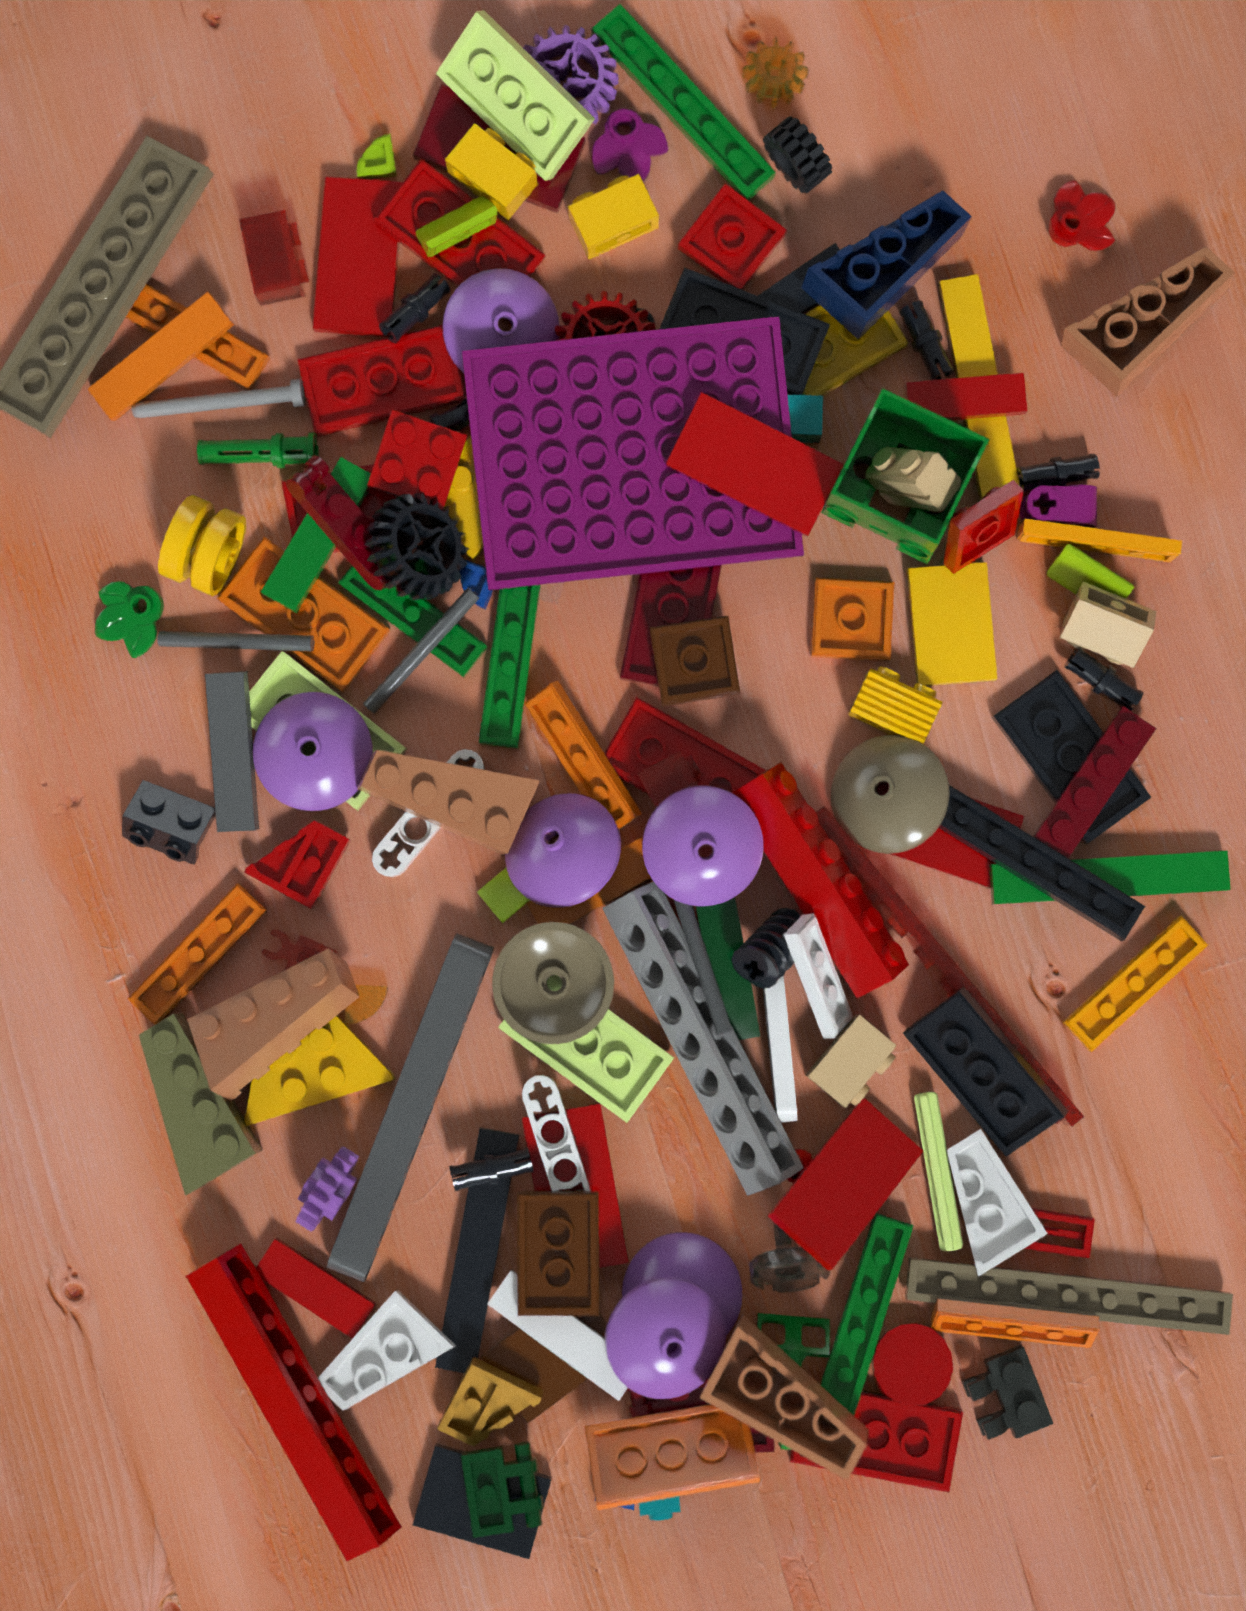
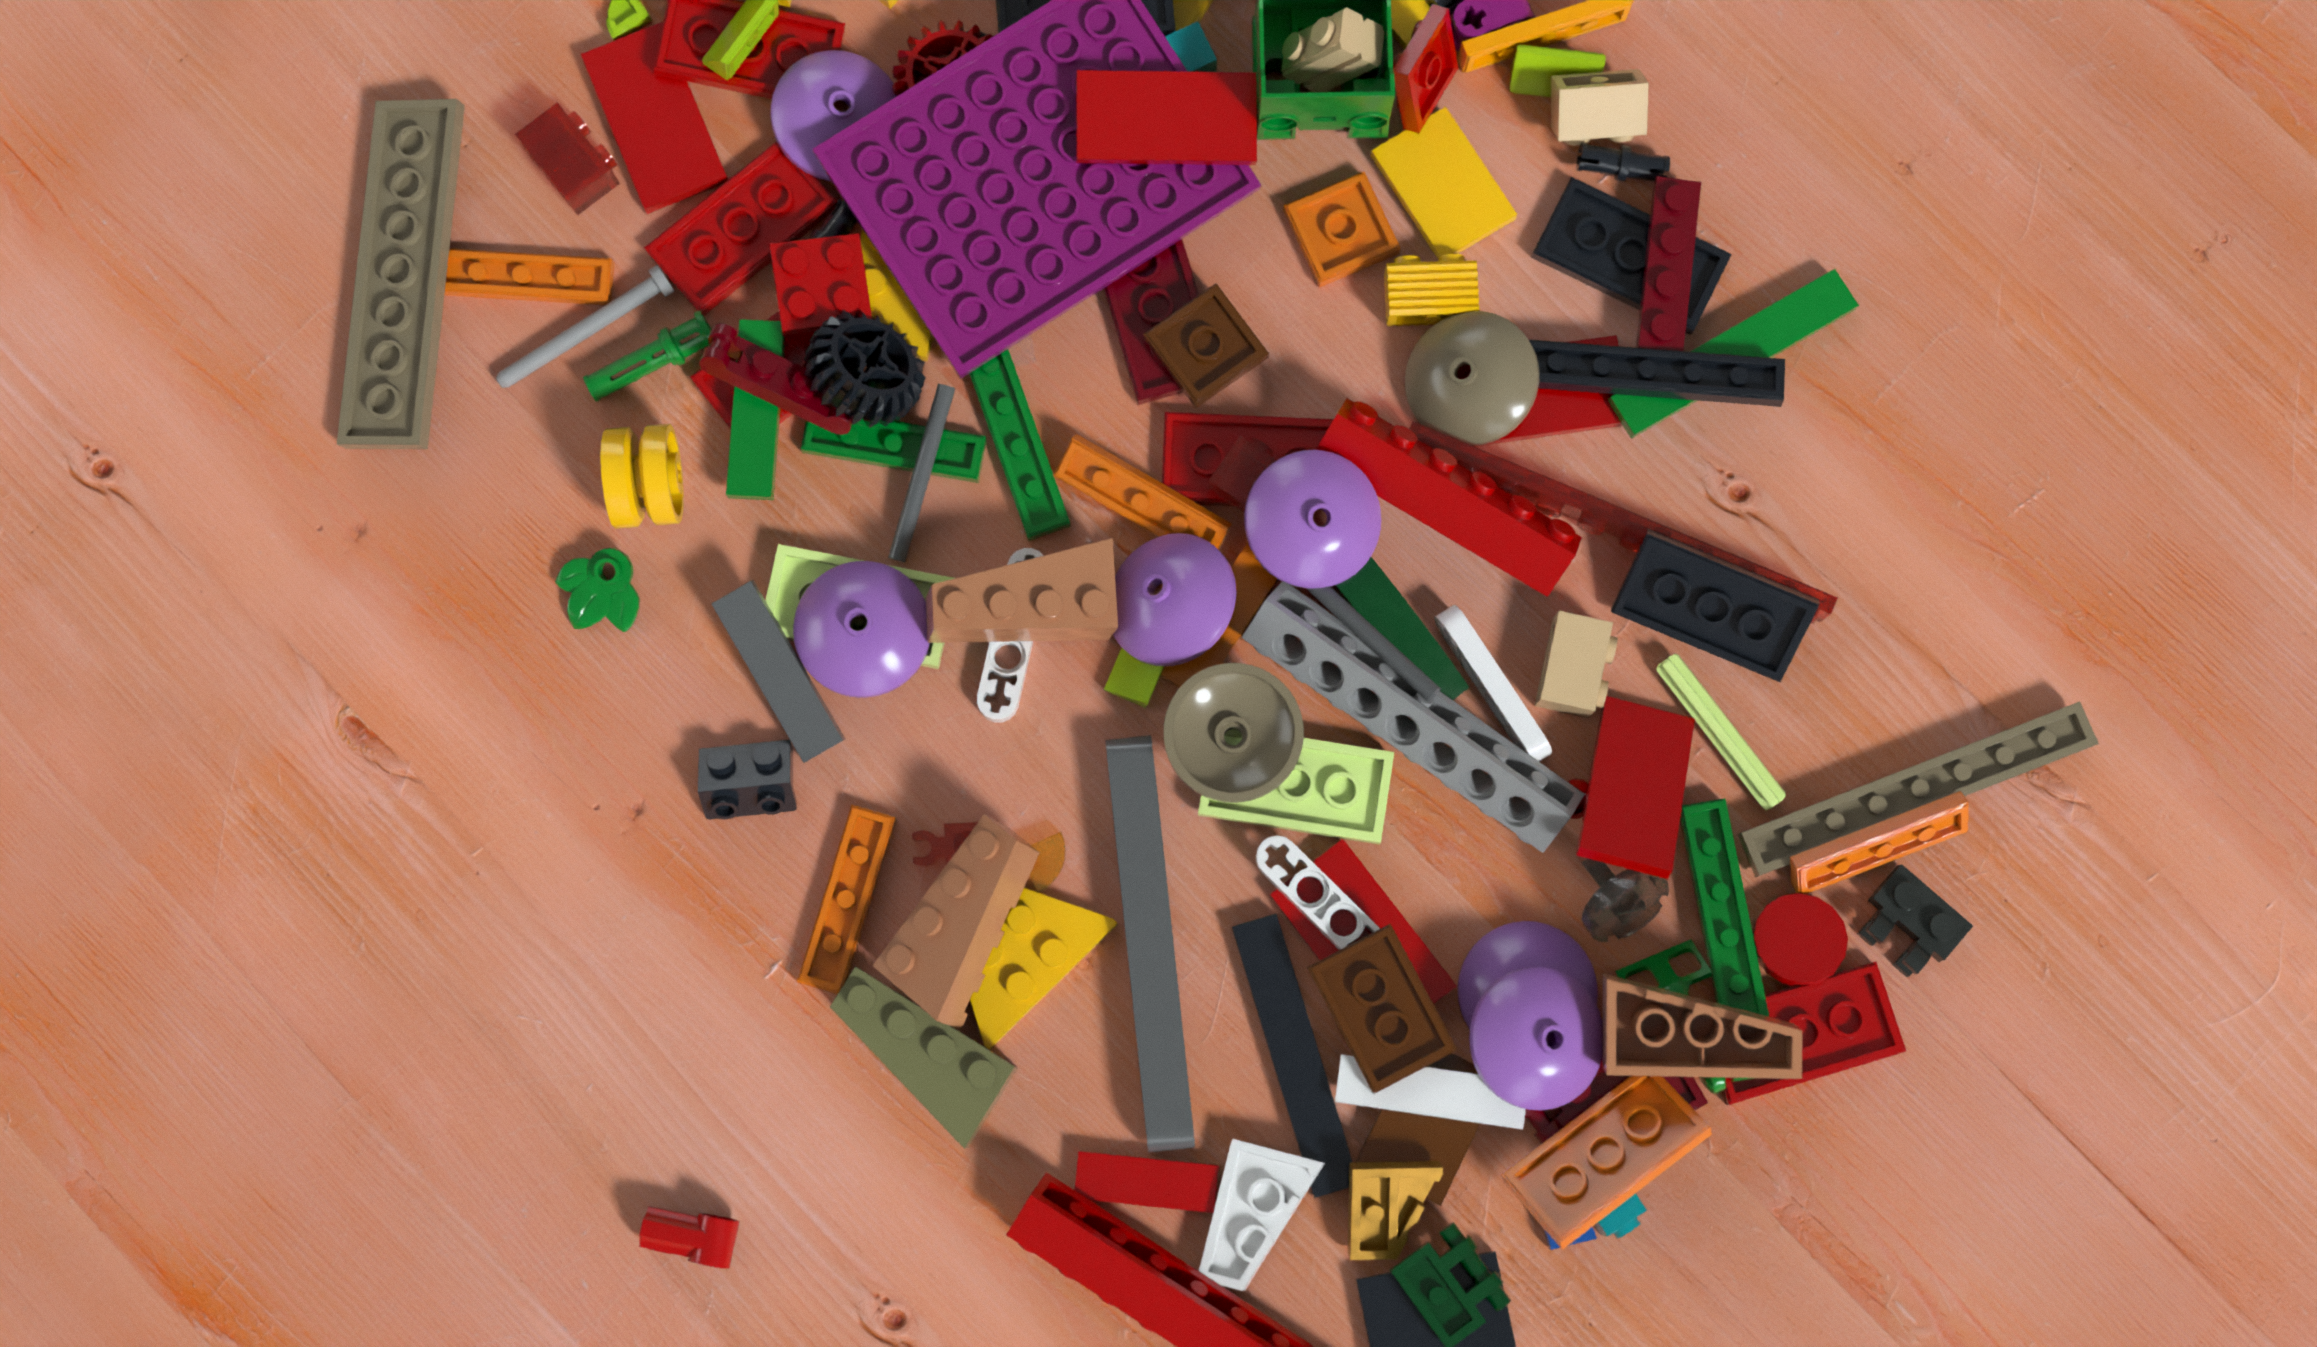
camera: 30 degrees left, 5 degrees down
(161, 356) = (501, 312): orange tile -> none
(236, 641) = (724, 559): dark grey bar -> none
(302, 863) = (909, 750): red wing -> none
(327, 1188) = (1108, 1065): medium lavender gear -> none
(341, 629) = (813, 508): orange tile -> none
(414, 308) = (739, 138): black pin -> none
(476, 578) = (942, 372): blue tile -> none
(491, 1169) = (1267, 959): black pin -> none
(766, 952) = (1436, 588): black piece -> none
(818, 976) = (1497, 592): white tile -> none
(992, 1205) = (1791, 734): white wing -> none
(1085, 1236) = (1829, 747): red tile -> none
(1135, 983) = (1814, 446): light orange tile -> none

